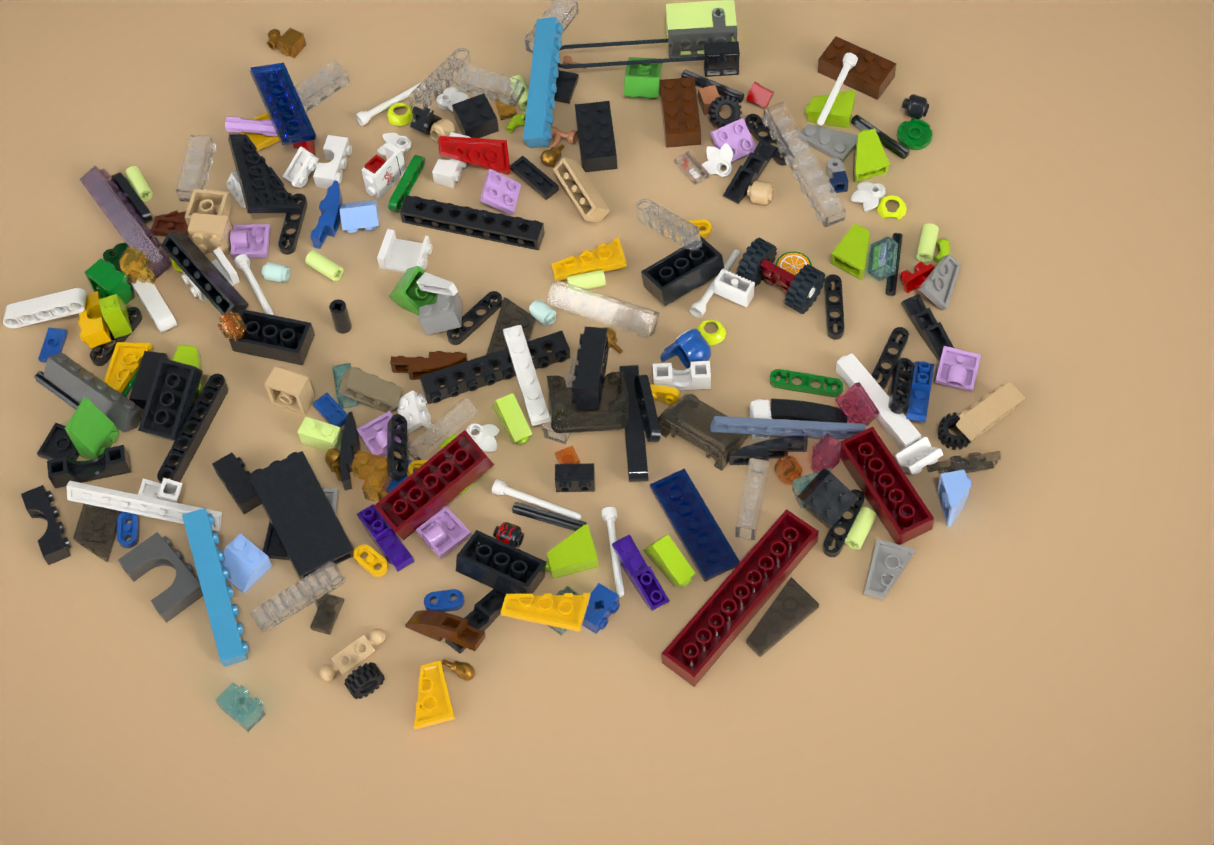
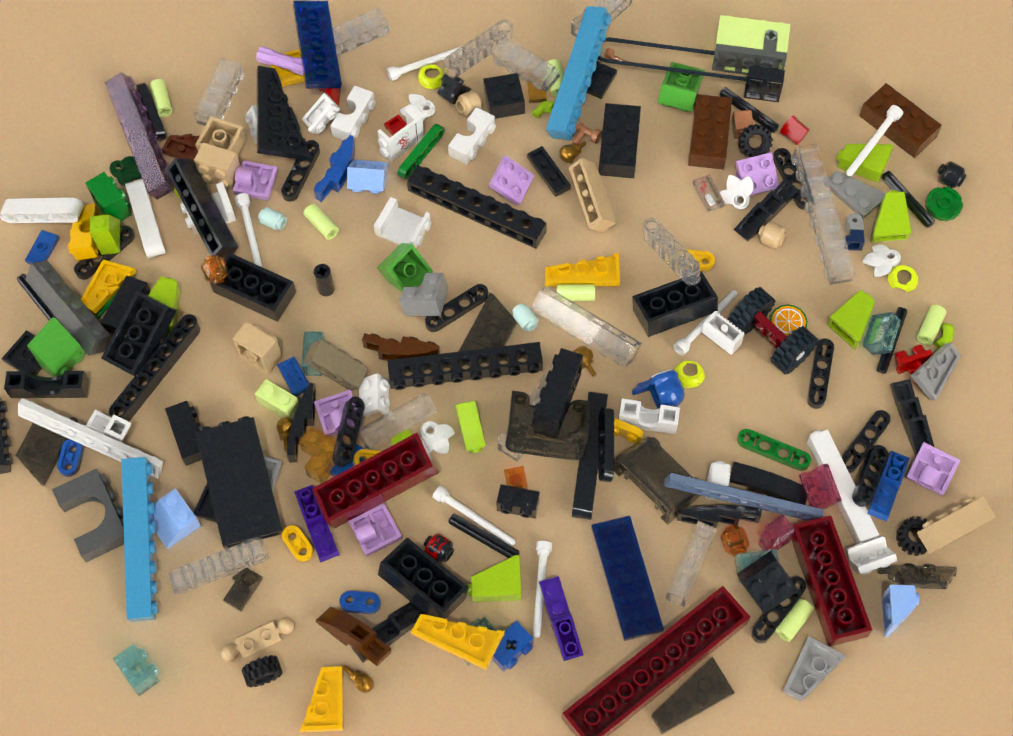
camera: 10 degrees right, 5 degrees up
(134, 264) = (134, 185): clear yellow brick -> none
(435, 284) = (423, 267): white piece -> none
(449, 97) = (485, 69): white plate -> none
(477, 151) = (500, 134): red wing -> none
(526, 375) = (493, 383): white plate -> none
(670, 561) = (593, 612): lime slope -> none

